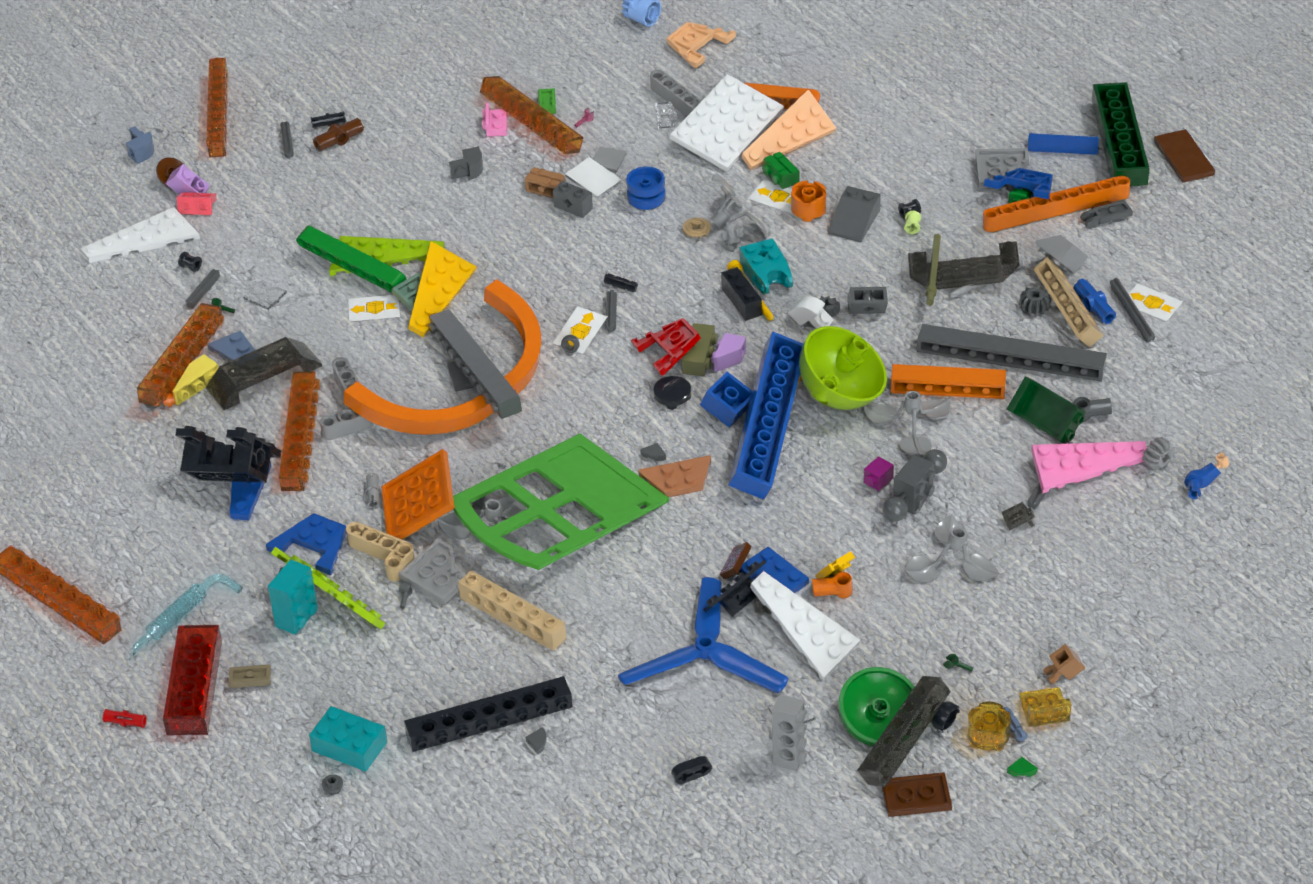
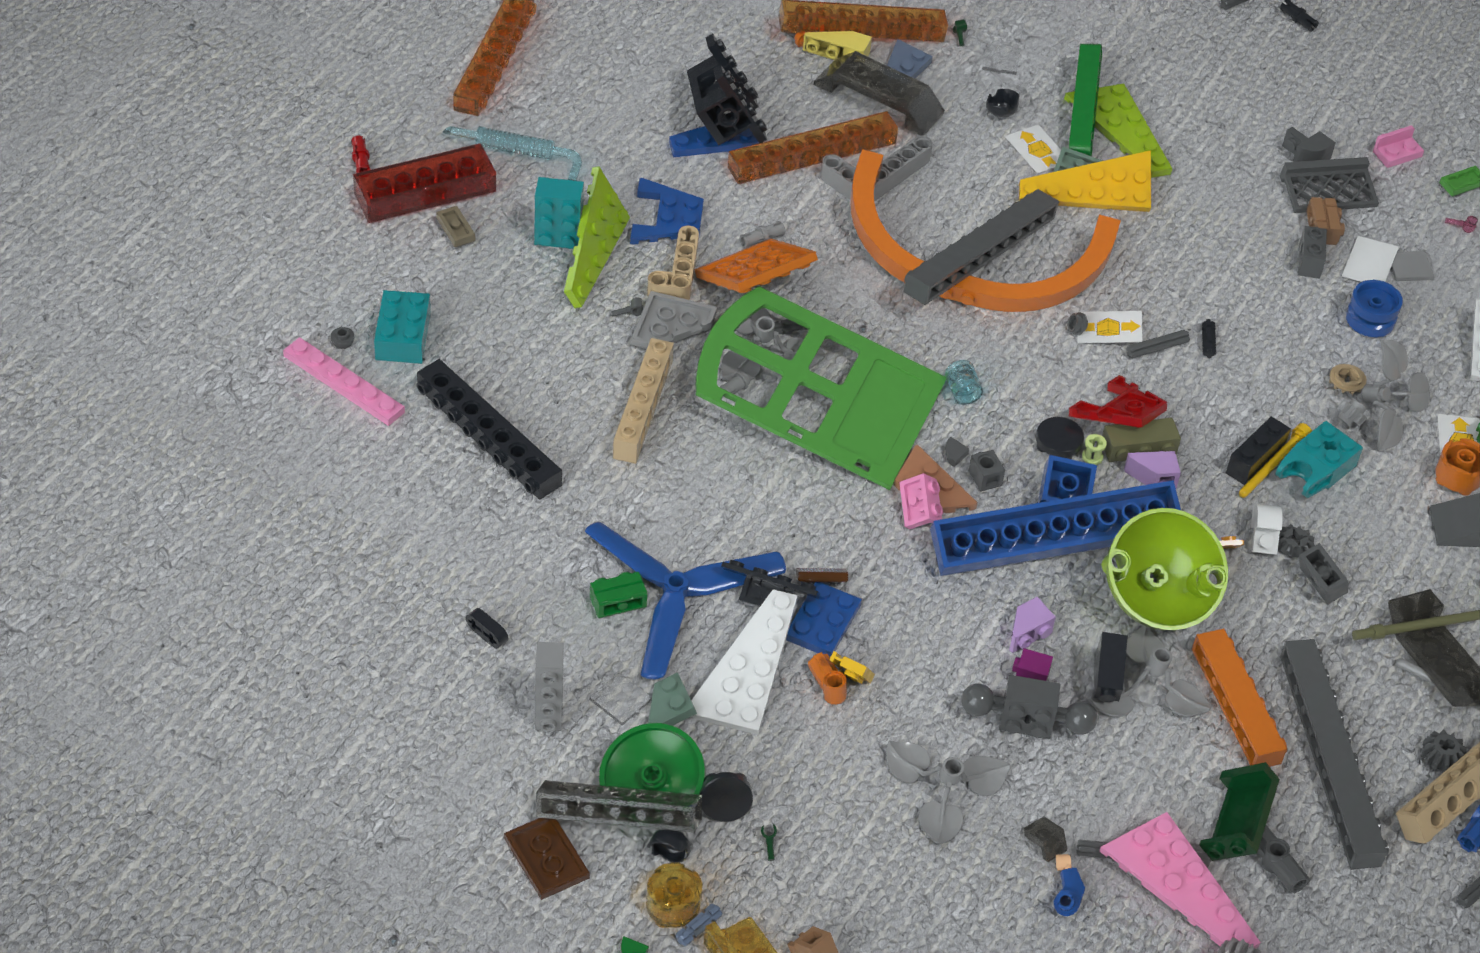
camera: 60 degrees right, 5 degrees up
(202, 288) = (980, 9): dark grey axle -> none
(320, 306) = (1003, 103): none -> black hair
(338, 134) = (1279, 29): reddish brown piece -> none
(380, 796) = (344, 381): none -> bright pink plate
(499, 164) = (1326, 171): none -> dark grey fence
(531, 115) = (1424, 172): clear orange brick -> none
(537, 740) = (474, 482): dark grey tile -> none
(601, 426) = (964, 382): none -> clear light blue wheel
(683, 439) = (986, 470): none -> dark grey brick
(695, 376) = (1098, 455): none -> yellowish green bush
(697, 682) = (618, 594): none -> green brick
(698, 483) = (920, 500): none -> bright pink bracket
(813, 681) = (670, 702): none -> sand green wing
(835, 464) = (1031, 623): none -> lavender slope
(899, 432) = (1110, 666): none -> black slope
(916, 666) = (726, 796): none -> black tile
(1069, 519) = (1073, 889): none -> blue arm

